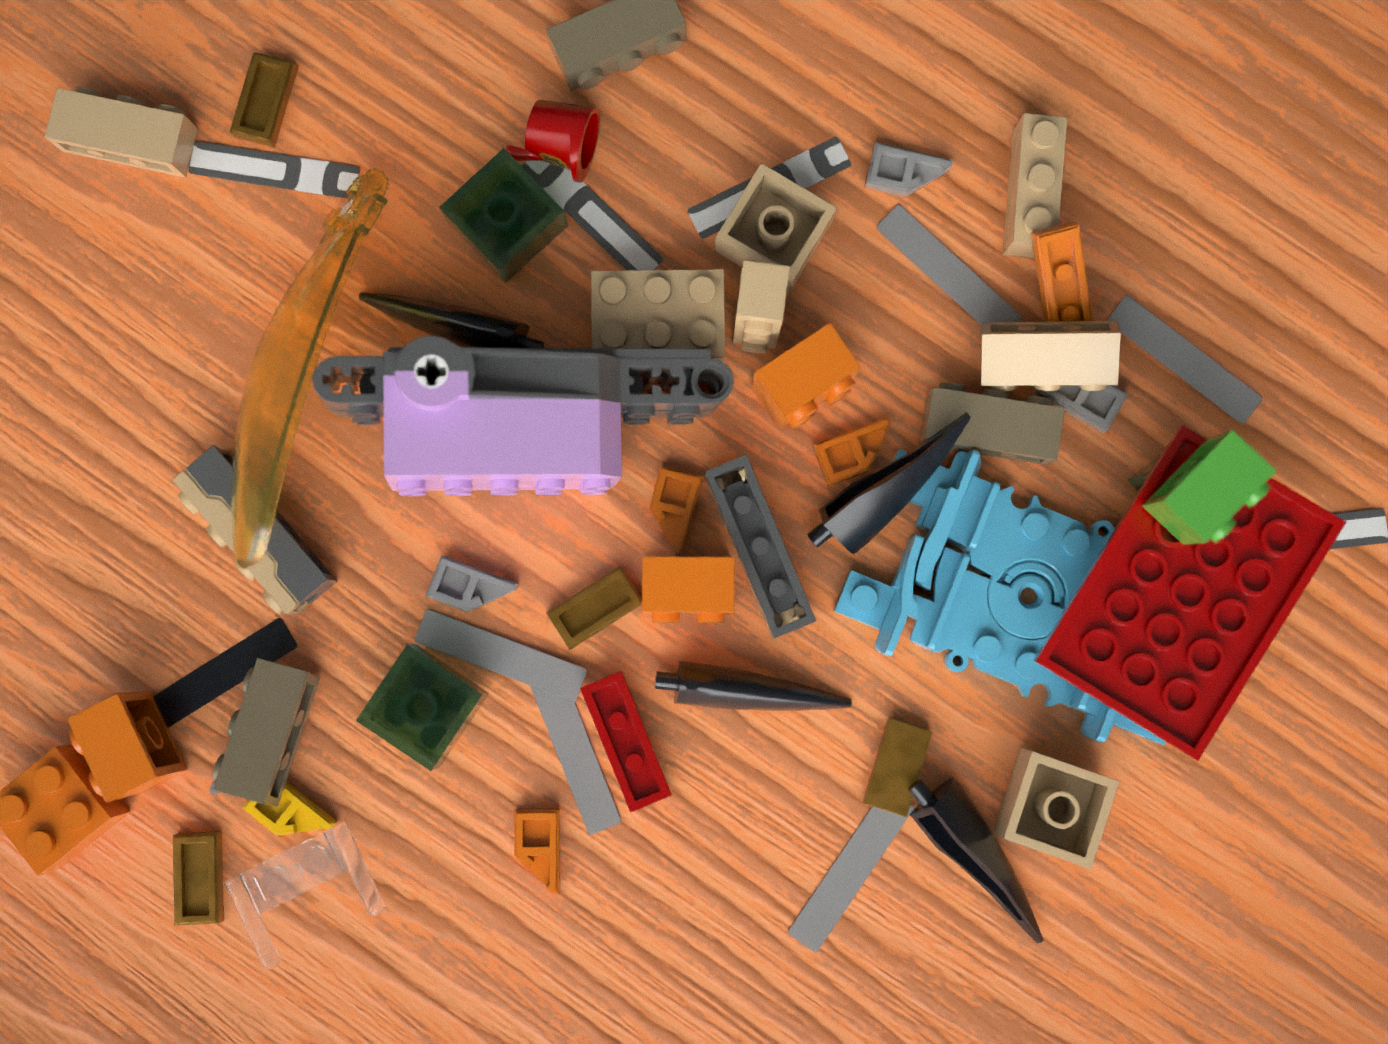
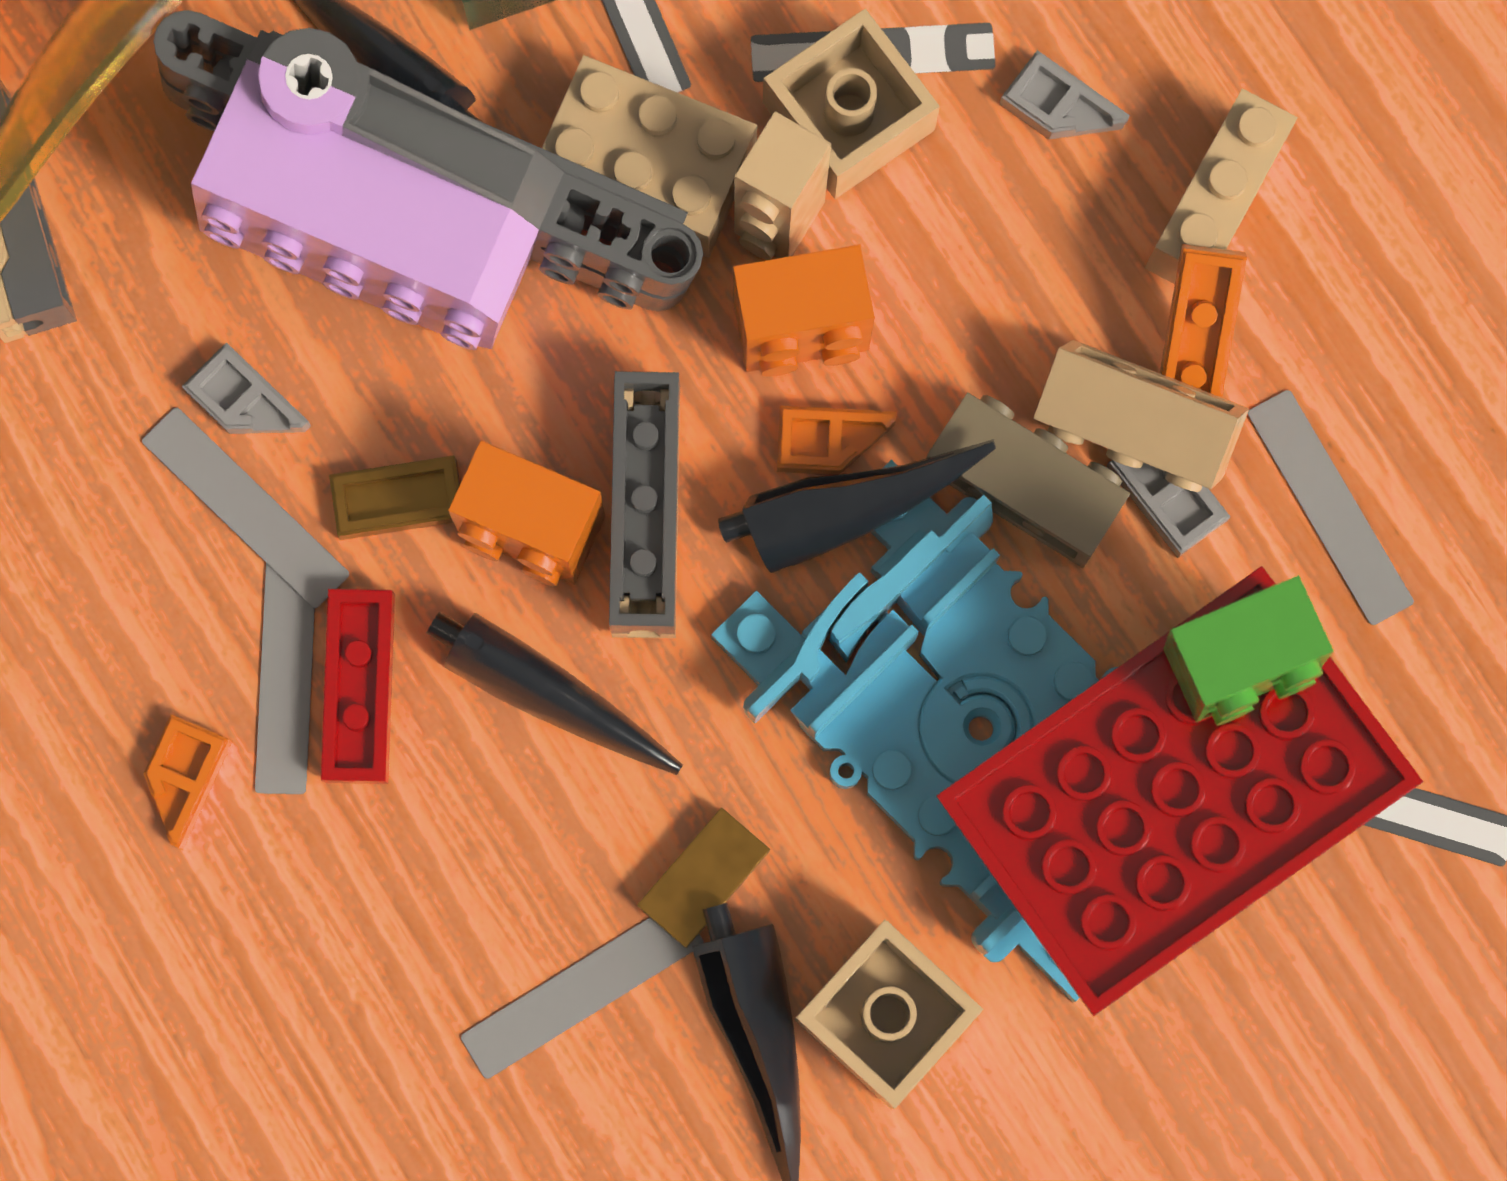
camera: 20 degrees right, 5 degrees down
(422, 706) = (112, 523): clear green brick -> none
(674, 504) = (564, 406): orange tile -> none
(945, 268) = (1059, 252): light grey sticker -> none

